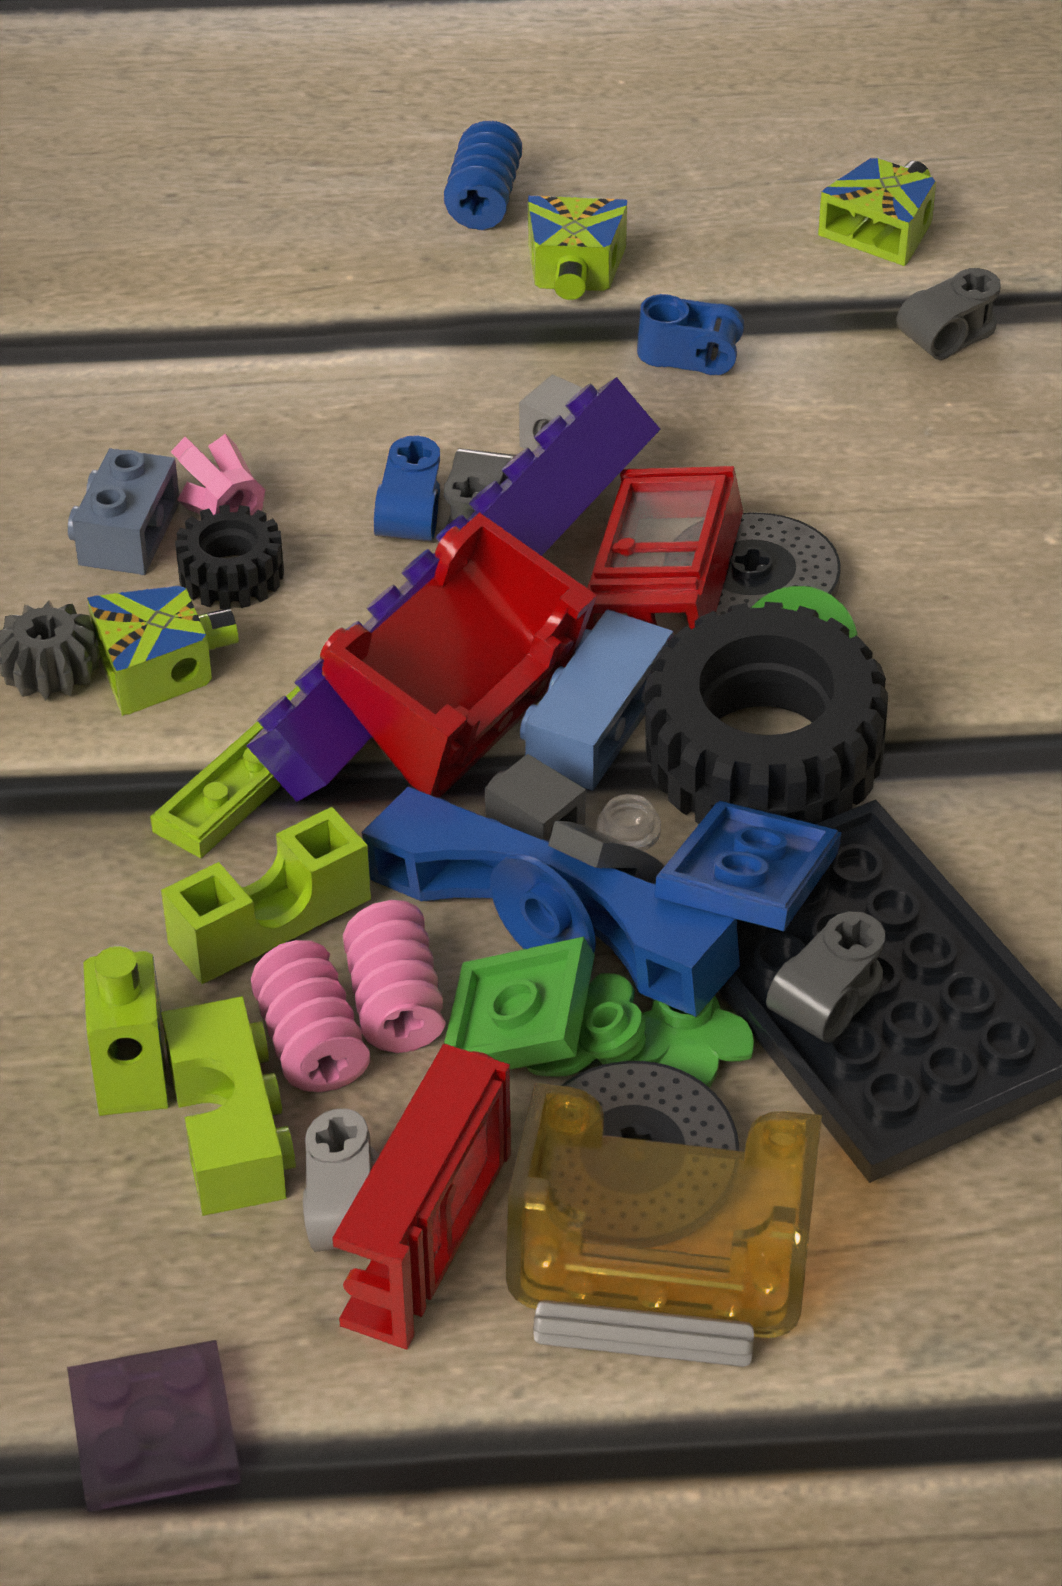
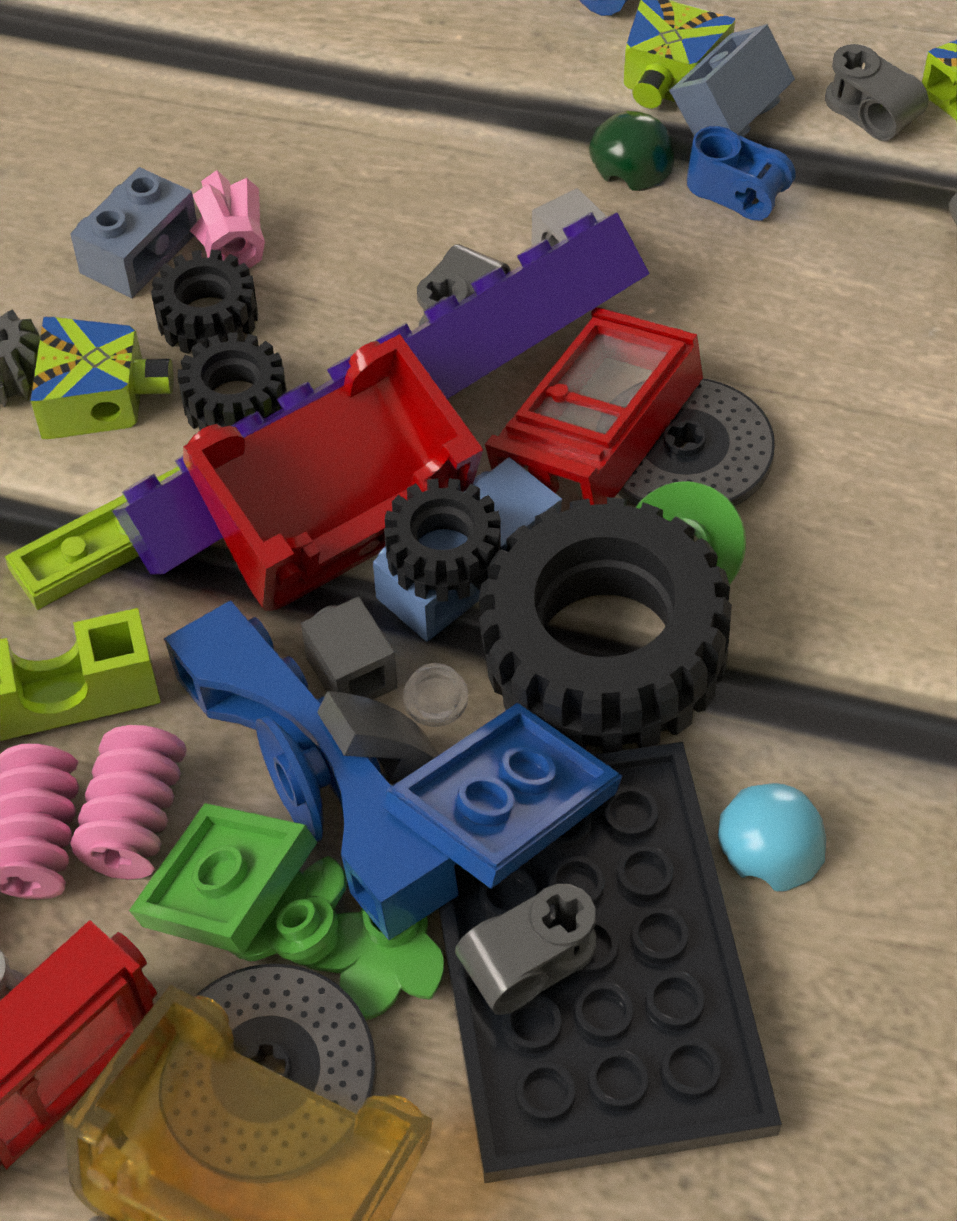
camera: 20 degrees right, 10 degrees up
(291, 600) = (229, 363): none -> black tyre
(409, 490) = (389, 280): blue piece -> none
(578, 334) = (633, 148): none -> dark green hair
(582, 706) = (439, 510): none -> black tyre
(650, 255) = (734, 82): none -> sand blue brick
(783, 242) = (876, 97): none -> dark grey piece
(987, 853) = (773, 835): none -> medium azure hair

